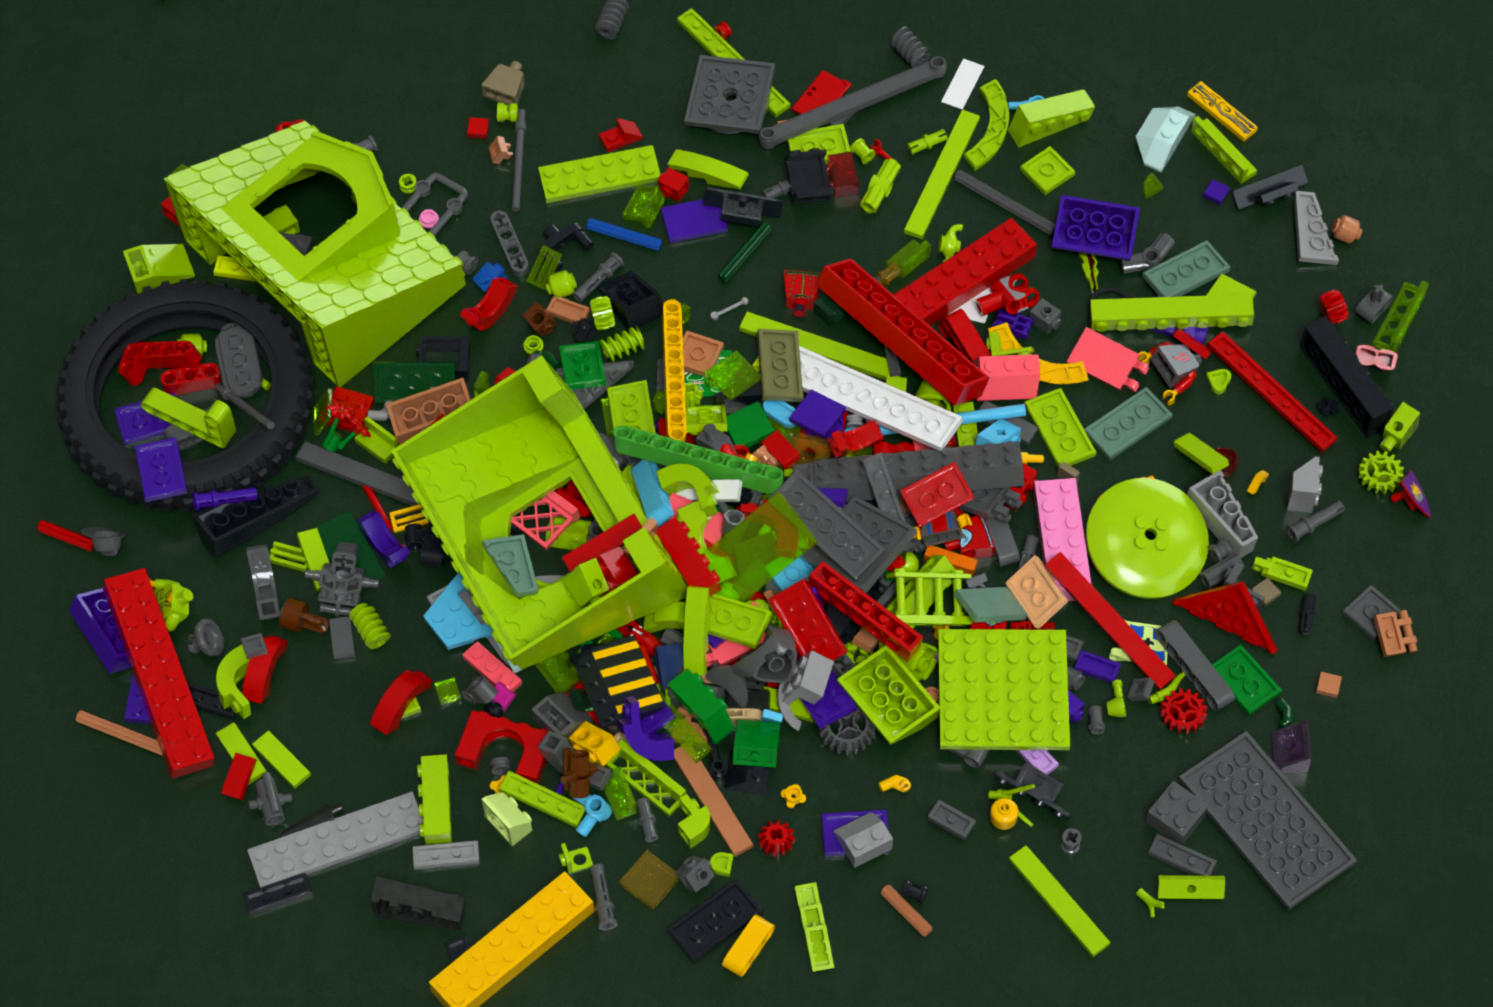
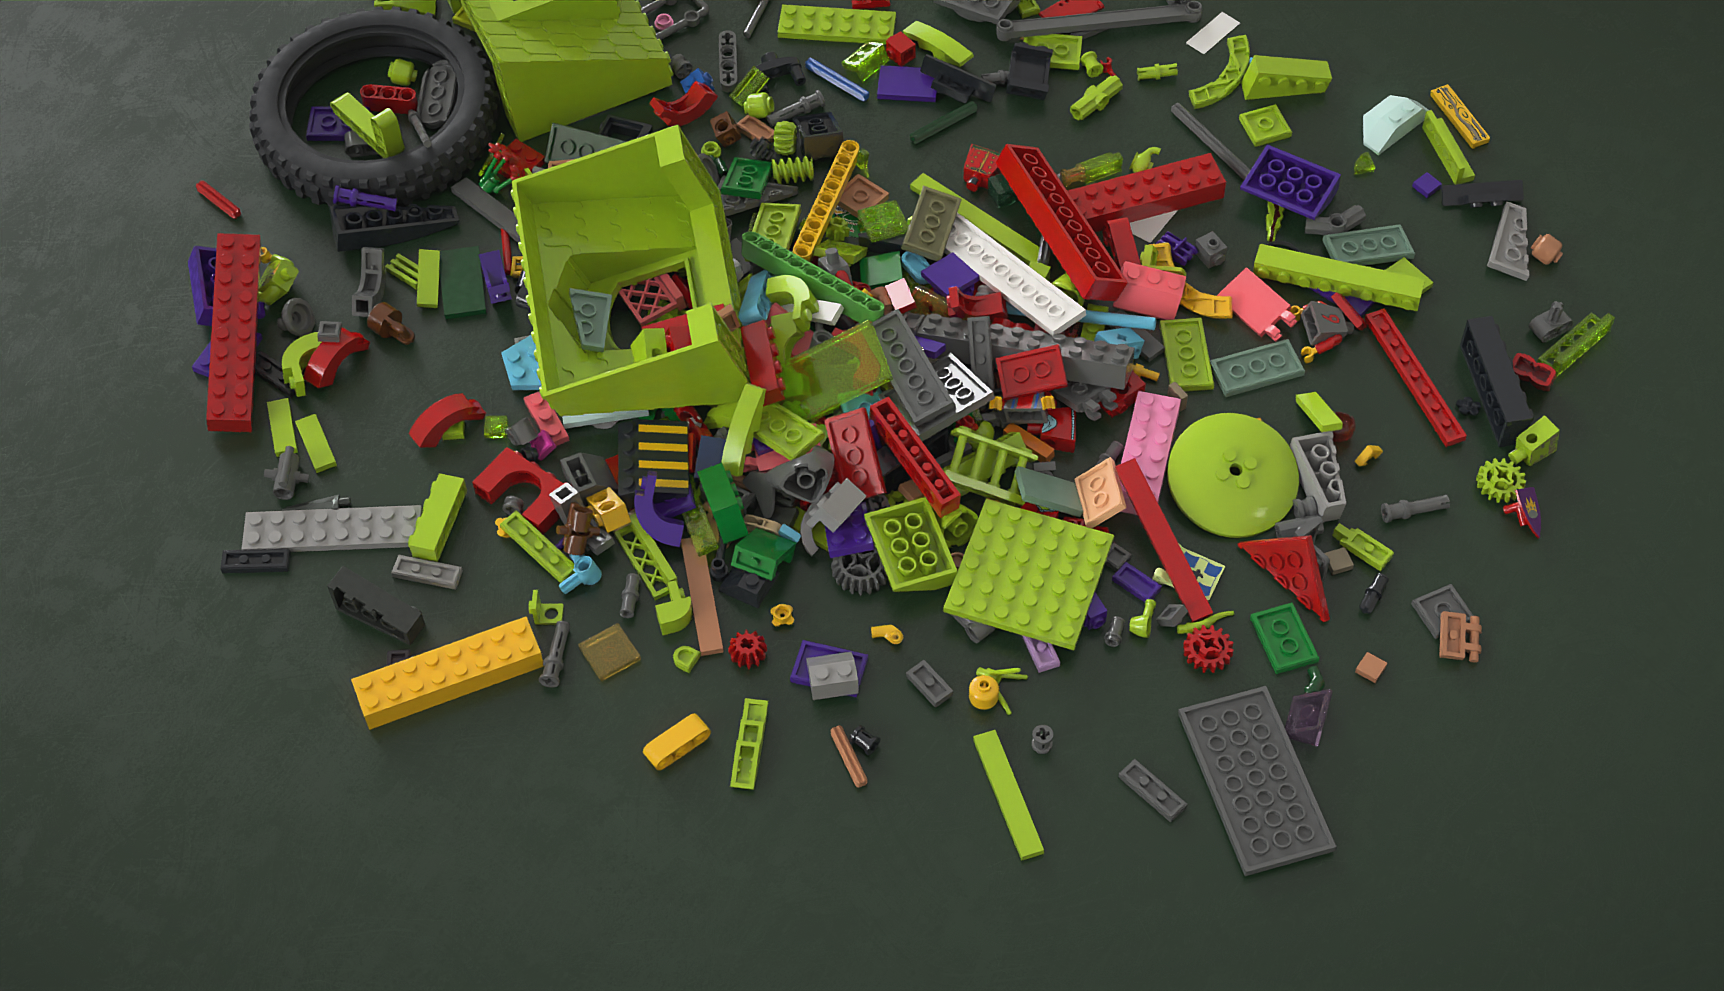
camera: 20 degrees right, 5 degrees down
(104, 540) = (247, 211): dark grey piece -> none
(118, 731) = (179, 375): nougat axle -> none
(150, 355) = (365, 70): red beam -> none
(161, 469) = (315, 157): dark purple tile -> none
(238, 776) = (268, 445): red tile -> none
(341, 580) = (438, 300): dark grey piece -> none
(342, 637) = (421, 353): dark grey tile -> none
(369, 626) = (448, 348): lime piece -> none
(506, 817) = (497, 552): yellowish green slope -> none
(559, 672) = (604, 435): clear neon green bracket -> none
(580, 700) = (610, 466): clear green plate -> none
(620, 795) = (613, 564): clear neon green bracket -> none
(695, 873) = (653, 657): dark grey brick -> none
(714, 921) = (654, 709): black tile -> none
(715, 315) = (892, 169): light grey hinge -> none
(842, 174) = (1063, 79): clear red brick -> none
(942, 174) = (1160, 103): lime tile -> none
(1005, 546) = (1085, 439): dark grey beam -> none
(1008, 296) = (1179, 221): red connector -> none
(1045, 788) = (1032, 677): black bracket -> none
(1075, 678) = (1107, 586): dark grey cone -> none
(1150, 901) = (1102, 823): lime bar -> none
(1177, 813) = (1162, 744): dark grey brick -> none
(1194, 665) = (1236, 608): dark grey beam -> none
(1203, 887) = (1163, 825): lime tile -> none
(1218, 380) = (1364, 353): lime tile -> none
(1305, 487) = (1414, 470): light grey slope -> none
(1333, 306) = (1507, 314): red gear -> none

